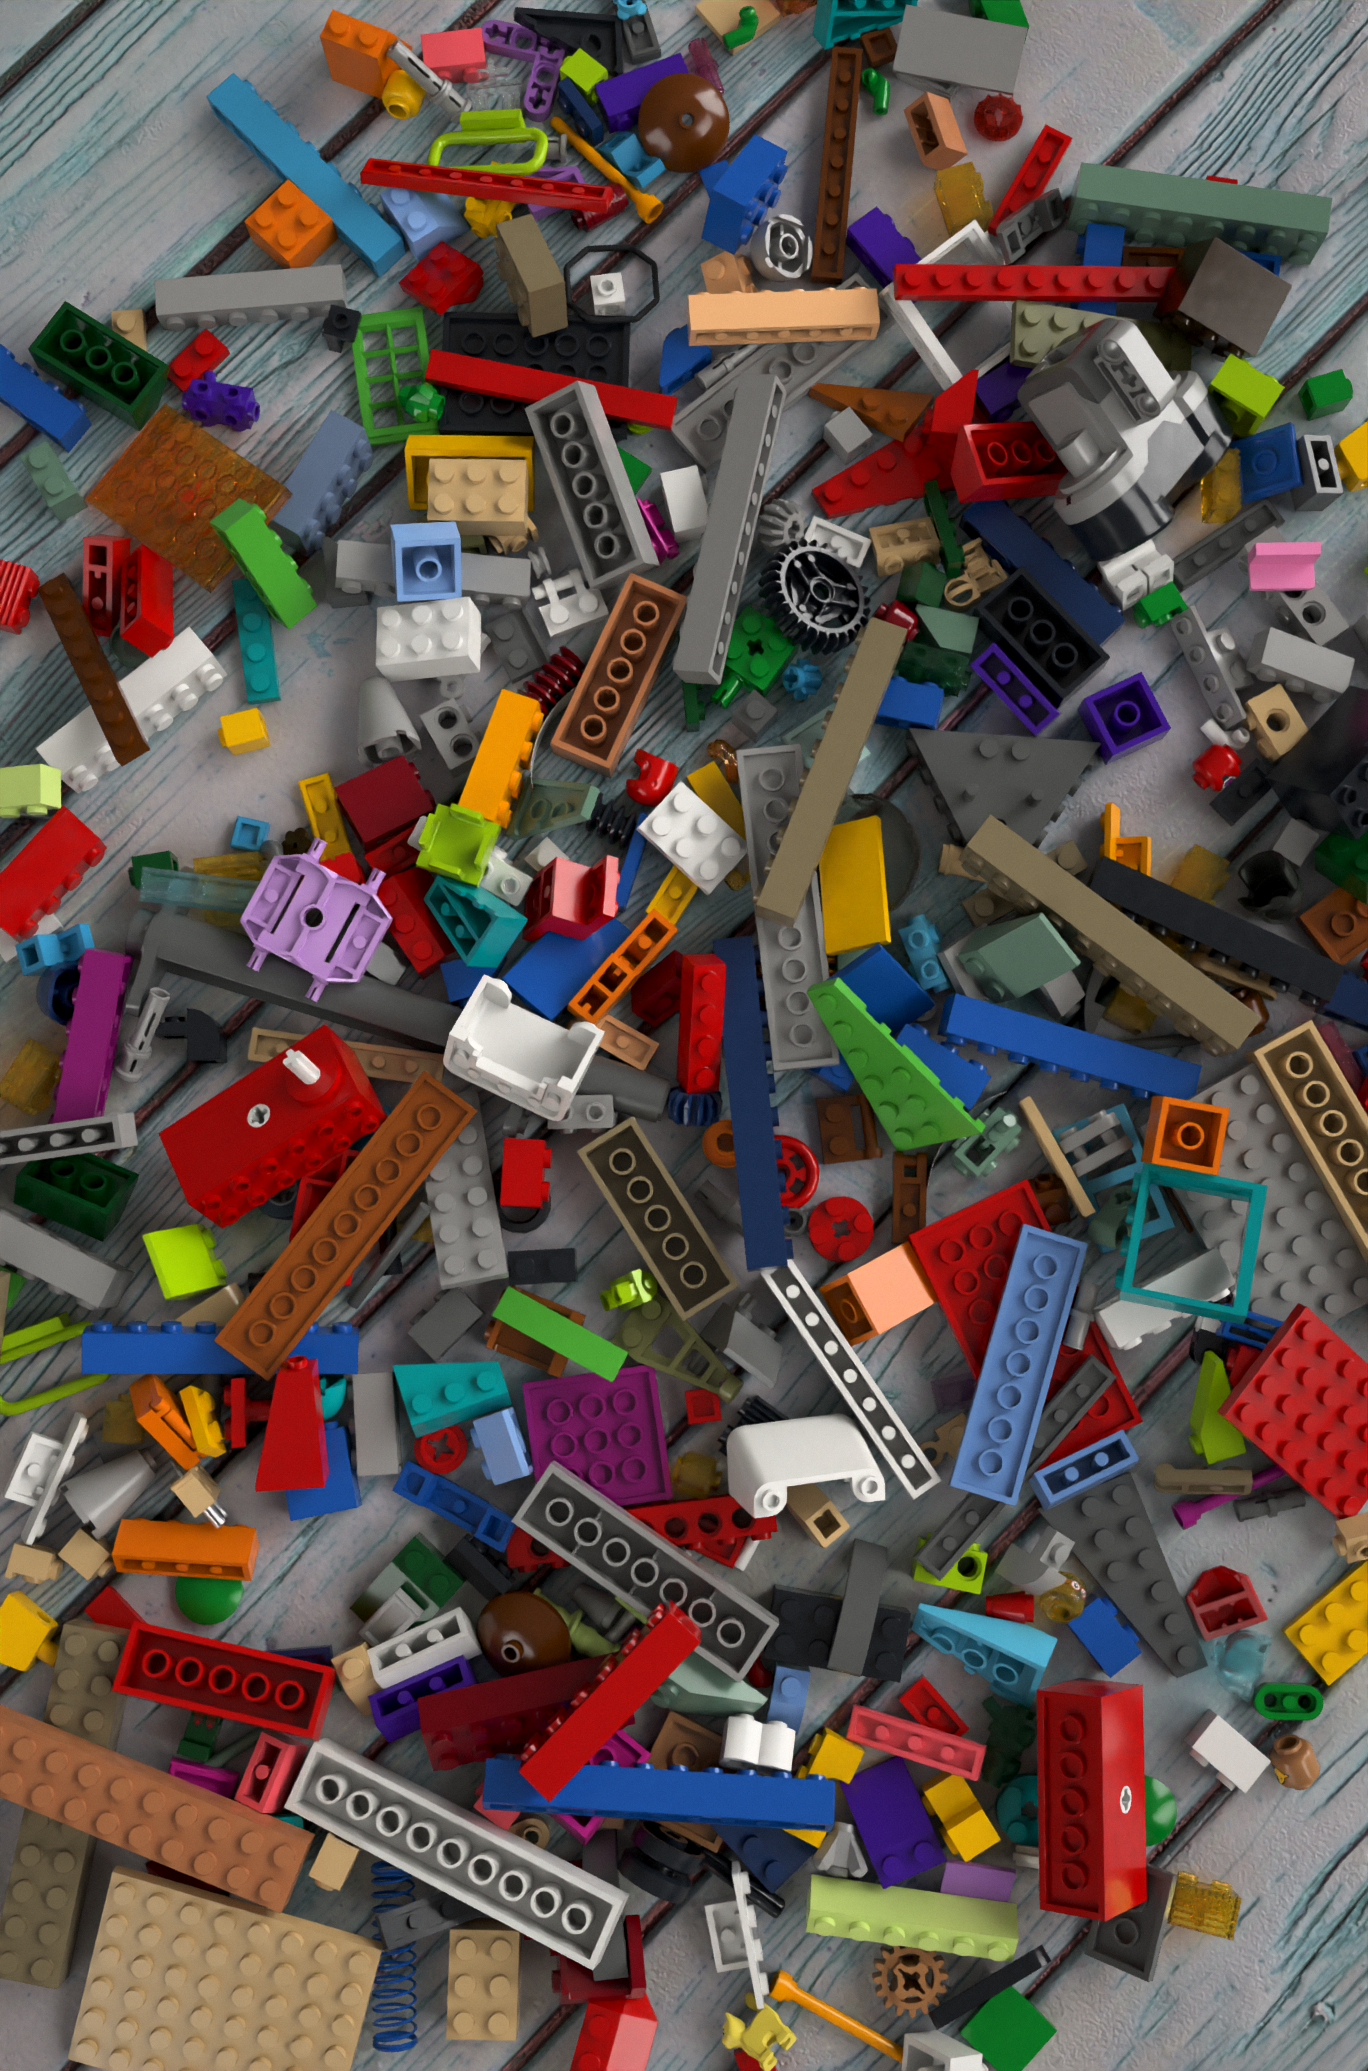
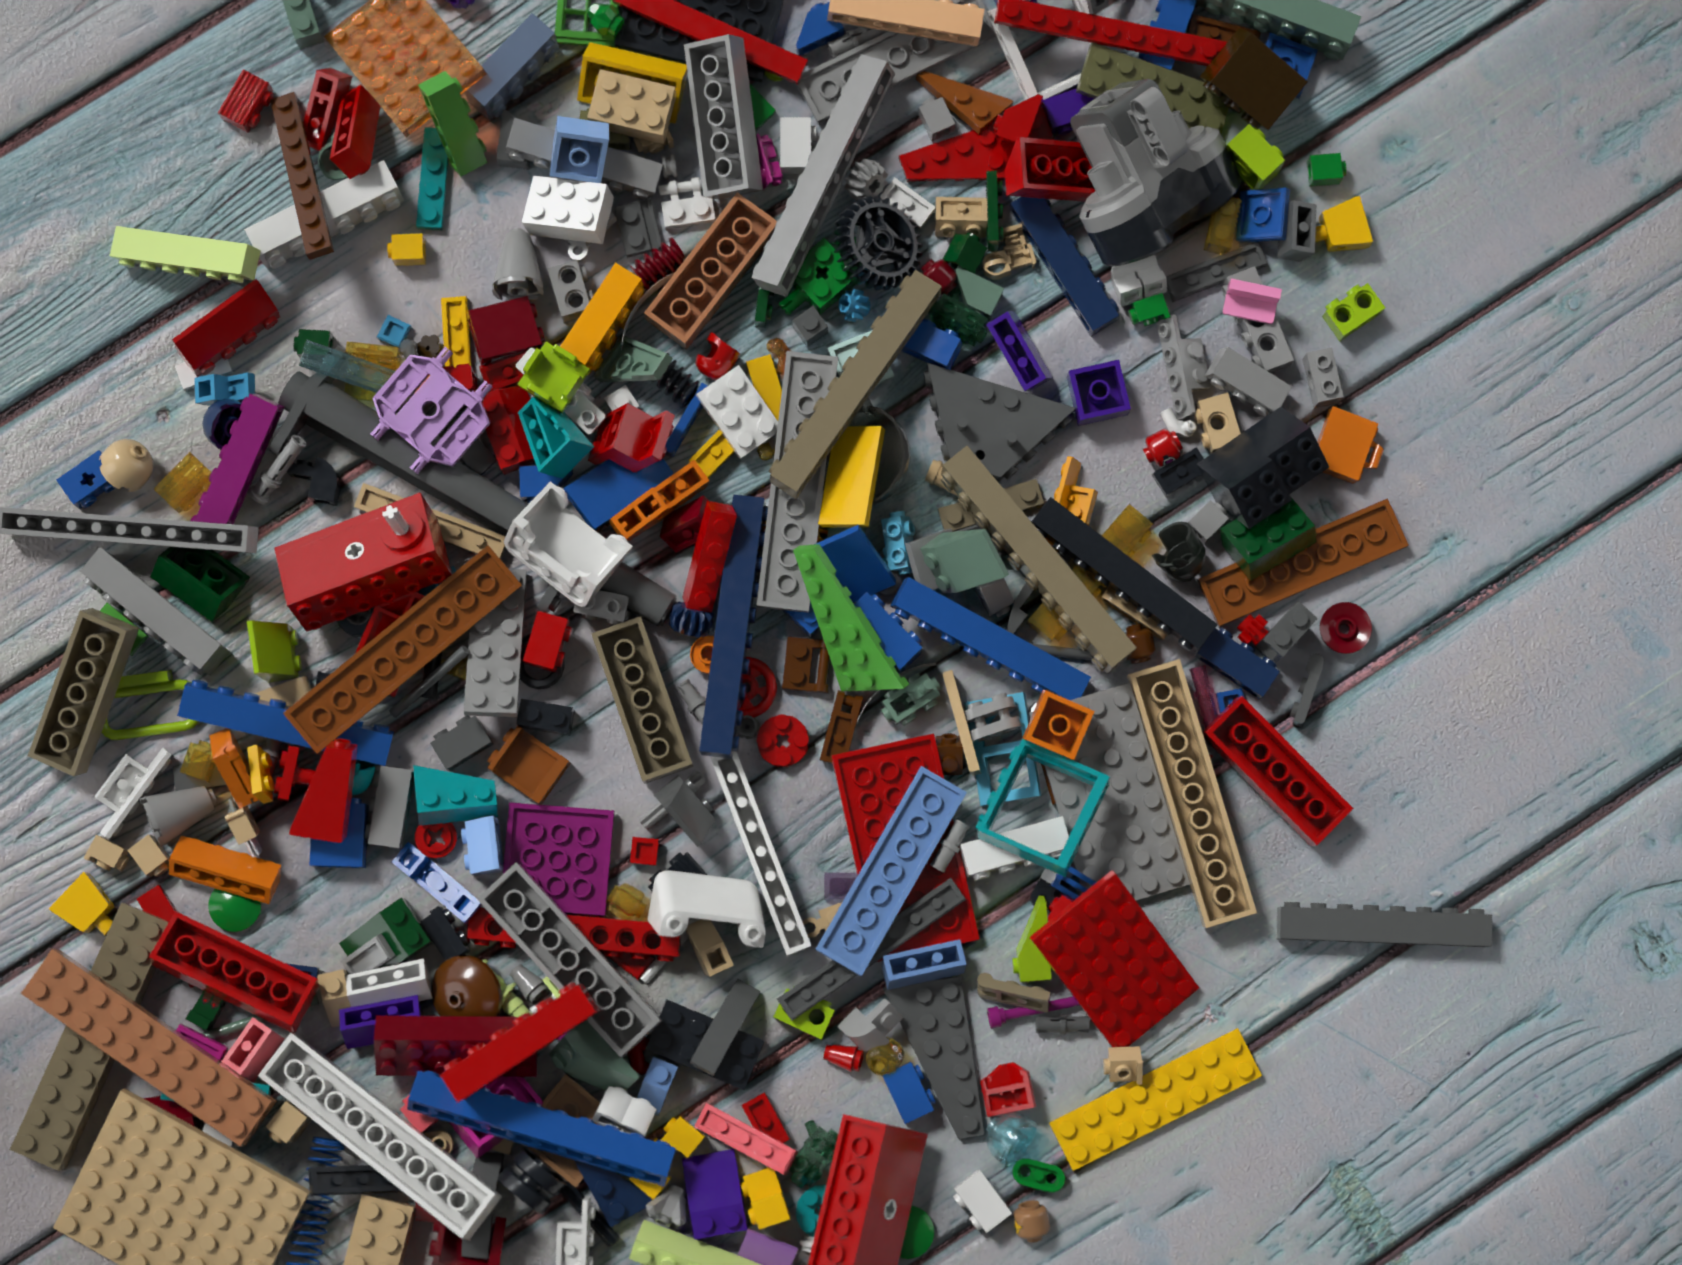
camera: 10 degrees right, 0 degrees up
(560, 1334) = (546, 769): bright green slope -> none
(624, 1042) = (649, 559): light nougat plate -> none
(629, 1291) = (607, 750): lime hips -> none
(646, 1324) = (612, 782): olive plate -> none
(879, 1294) = (799, 796): slope -> none
(999, 1650) = (823, 1084): medium azure wedge -> none
(1040, 637) = (1048, 314): black brick -> none
(1110, 1223) = (988, 780): sand green piece -> none

